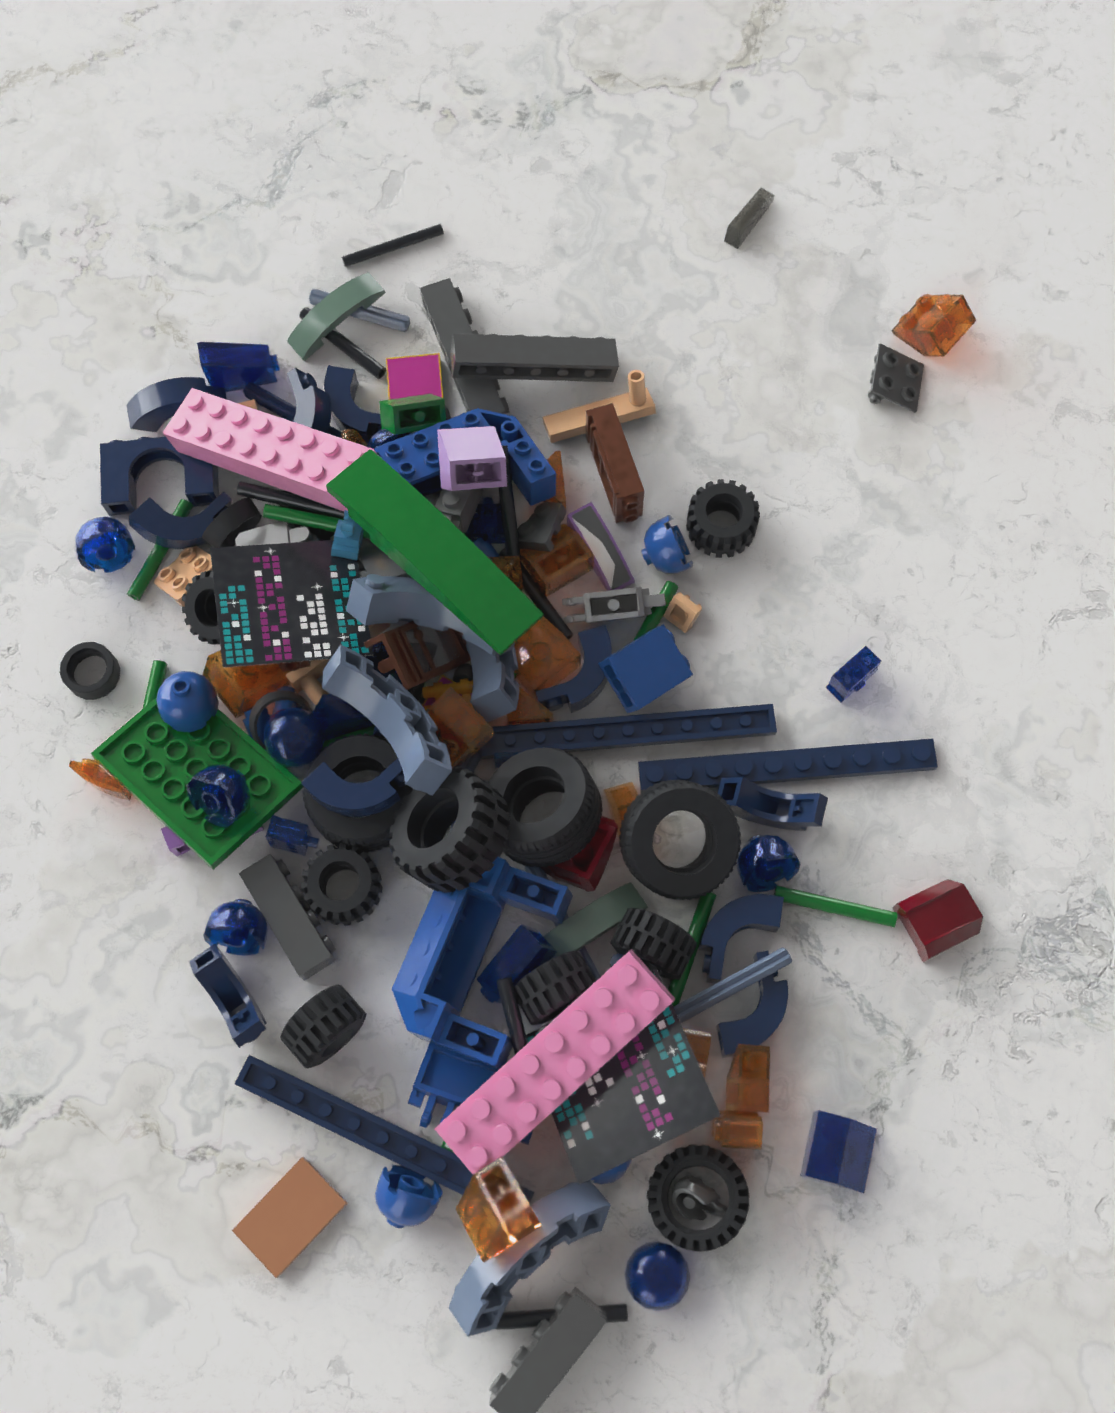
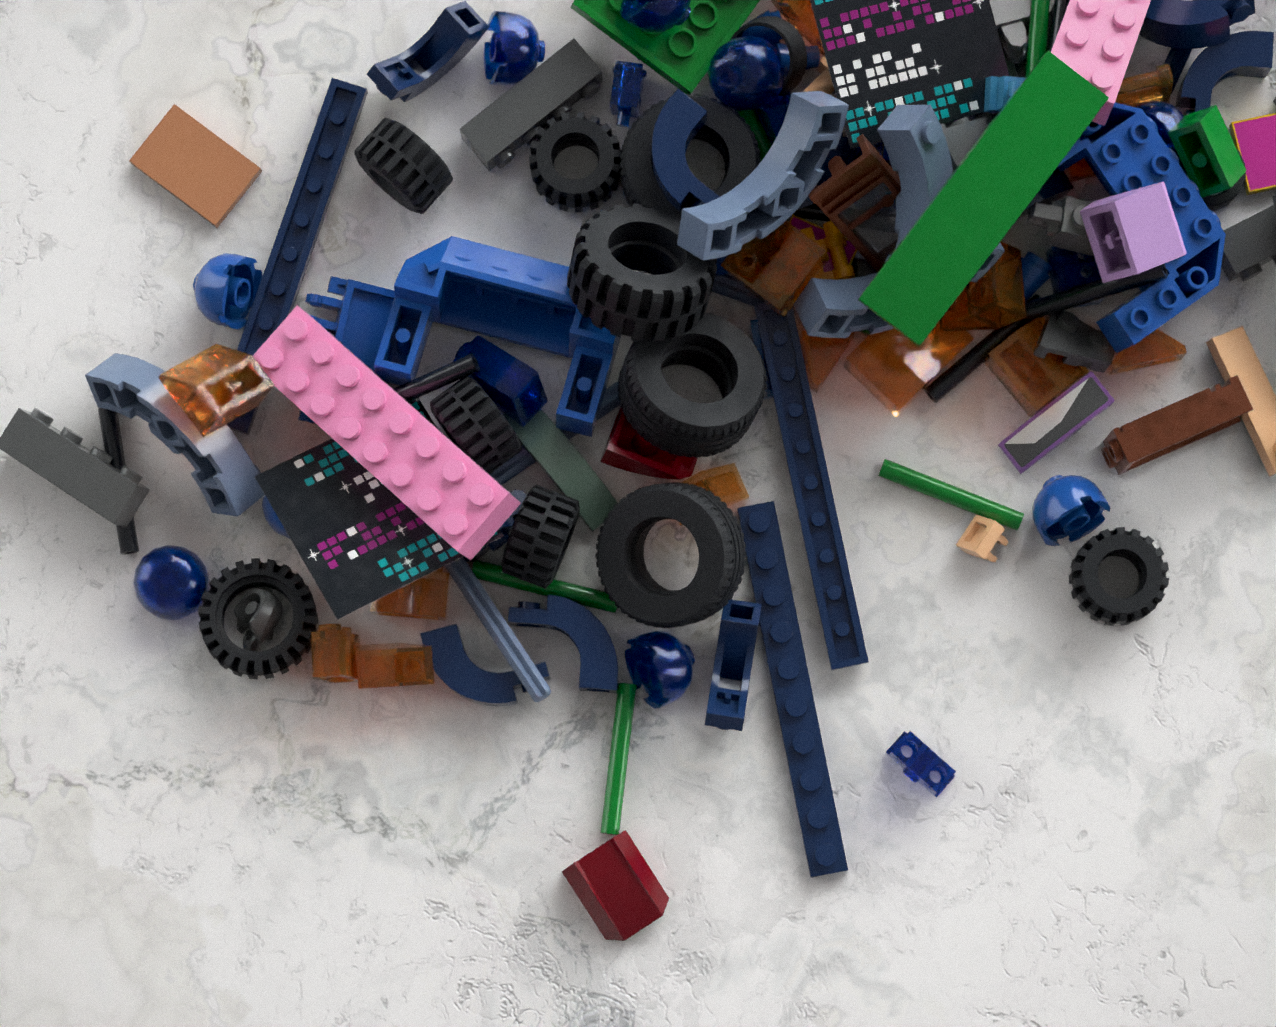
camera: 85 degrees right, 10 degrees up
(589, 682) = (880, 432): dark blue arch -> none
(614, 605) = (976, 447): light grey hinge -> none
(646, 668) = (892, 495): blue brick -> none
(838, 1151) = (326, 779): clear blue slope -> none

